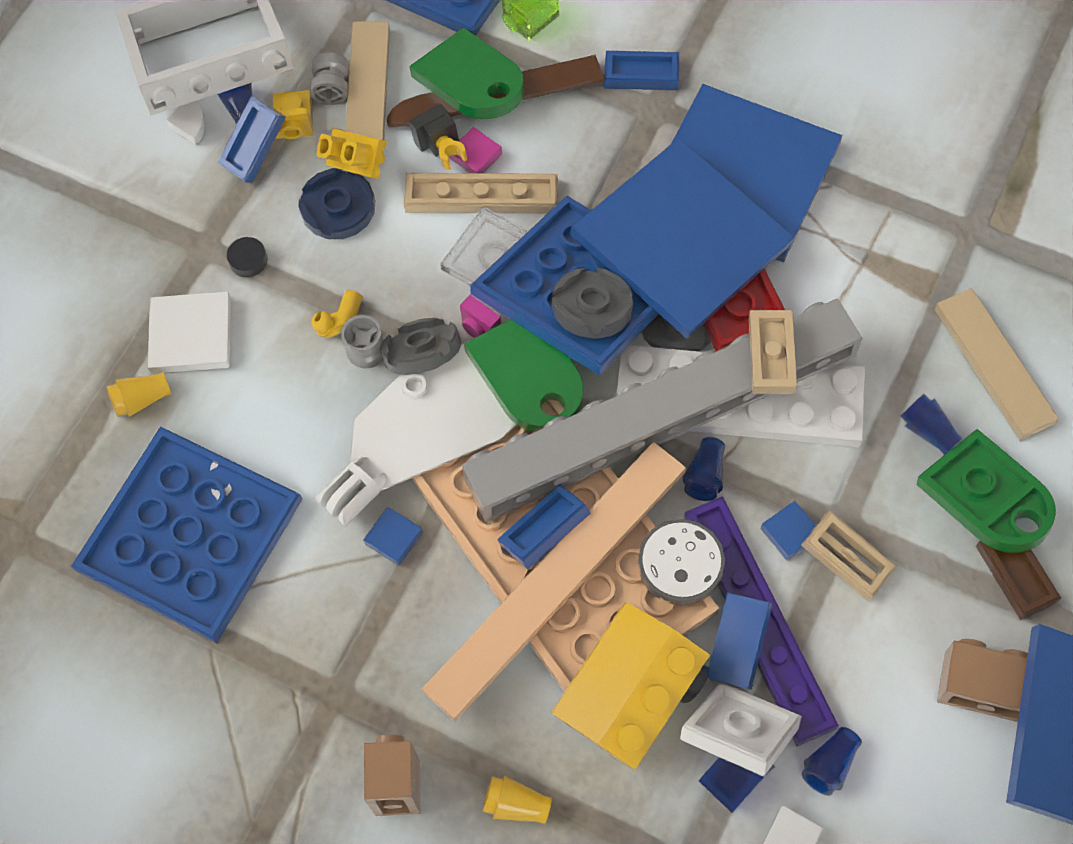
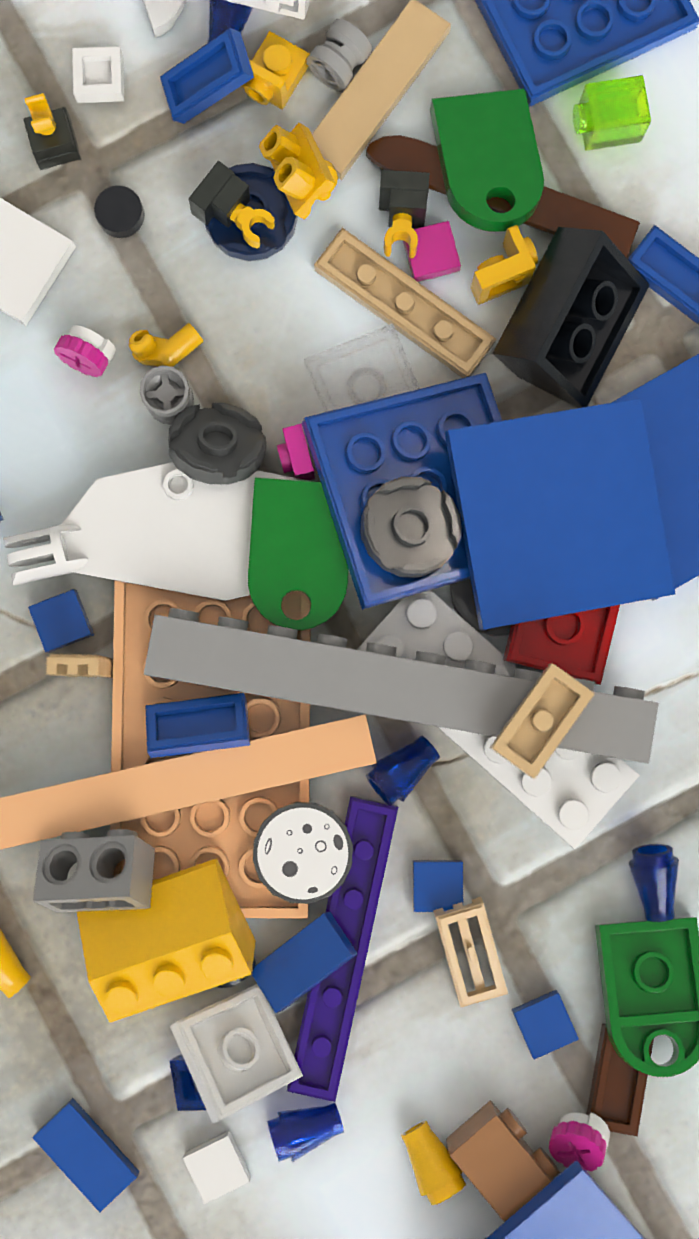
camera: 30 degrees right, 20 degrees up
(167, 237) = (50, 133): none -> pearl dark grey piece
(175, 185) = (98, 74): none -> white plate
(286, 351) = (85, 351): none -> dark pink piece
(316, 199) = (225, 199): none -> pearl dark grey piece
(437, 546) = (79, 665): none -> tan tile
(533, 129) = (501, 275): none -> yellow bracket
(551, 676) = (94, 882): none -> light grey brick
(594, 128) = (572, 315): none -> black slope
(938, 570) = (545, 1024): none -> blue tile
(941, 718) = (433, 1167): none -> yellow cone
(1019, 620) = (580, 1139): none -> dark pink piece

